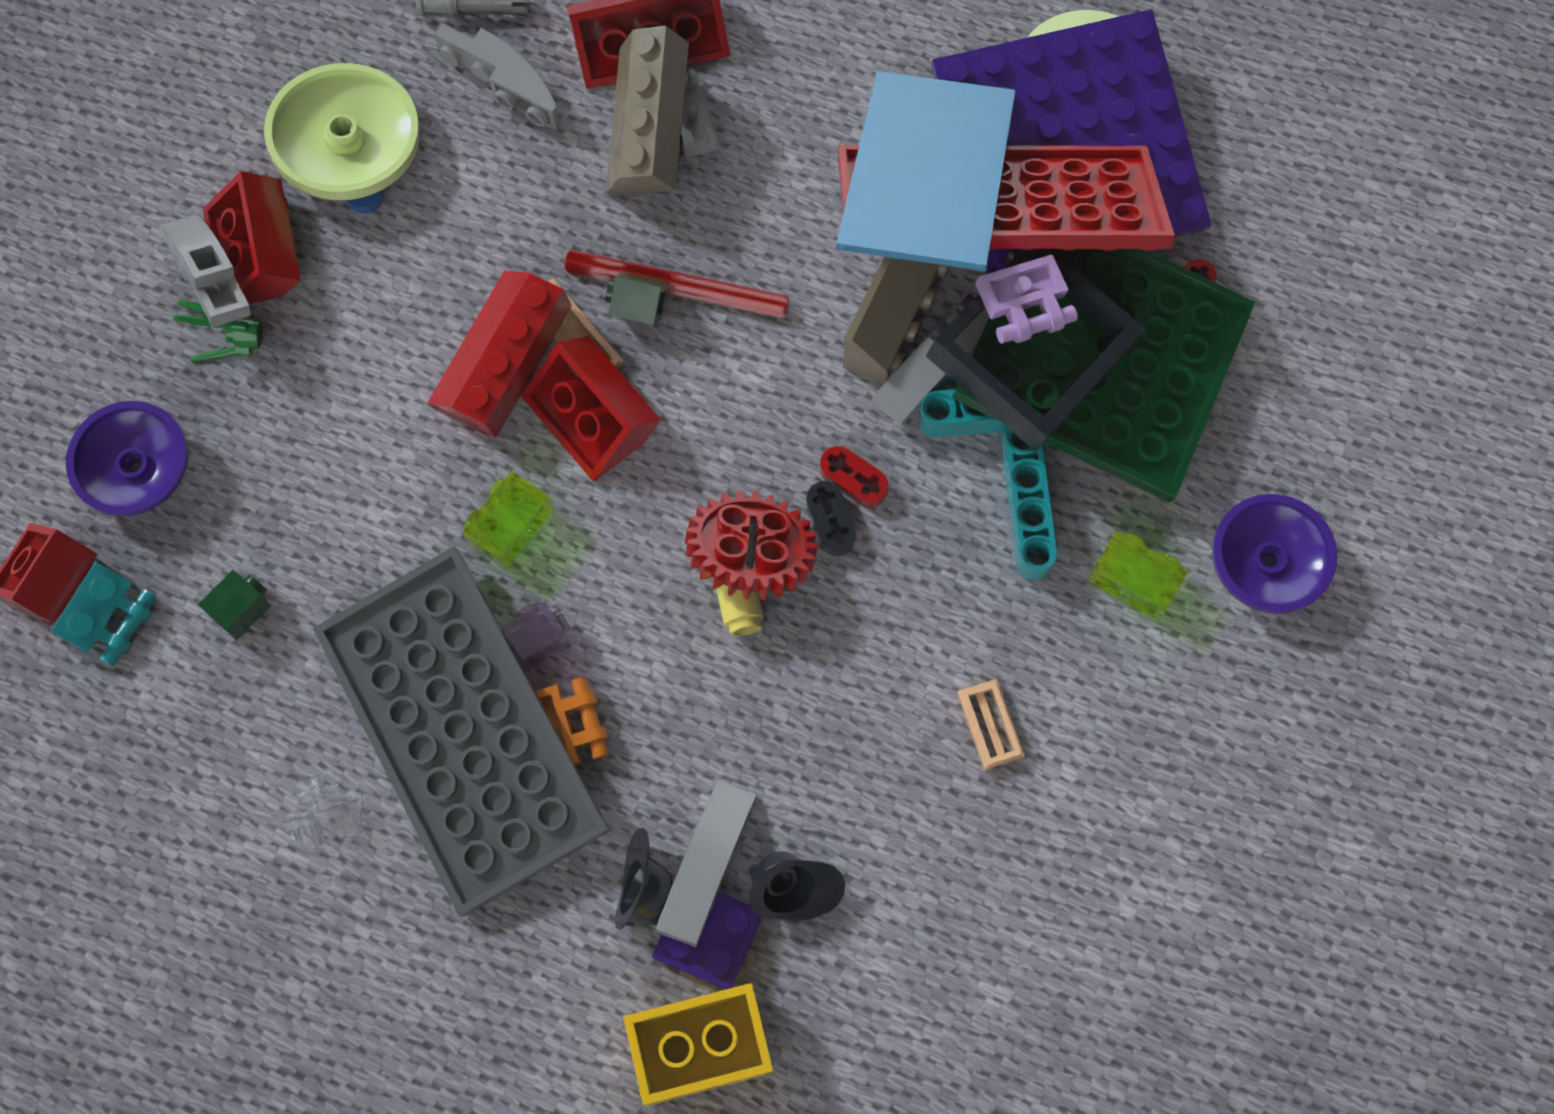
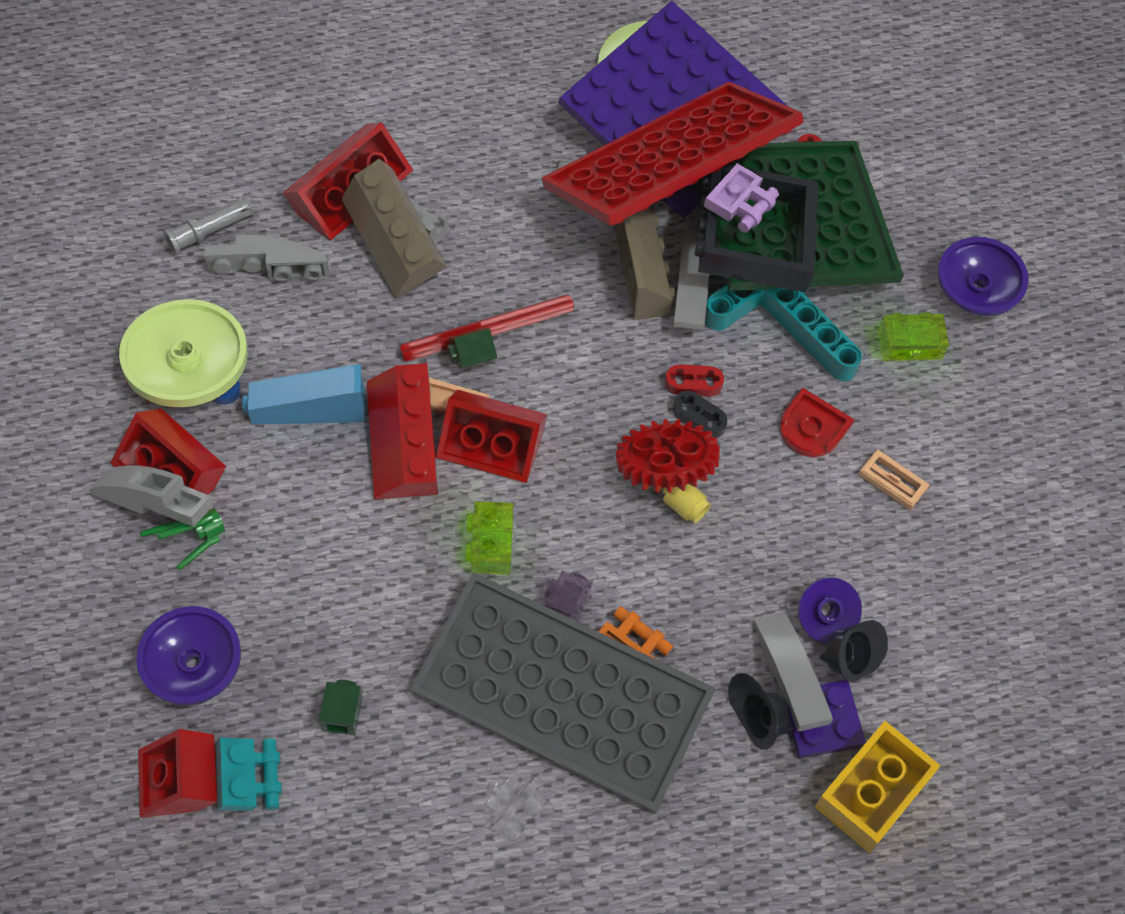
camera: 40 degrees left, 10 degrees down
(431, 255) = (309, 397): none -> dark azure slope
(808, 841) = (843, 603): none -> dark purple dish
(927, 171) = (621, 156): dark azure piece -> none
(948, 607) = (813, 425): none -> red tile

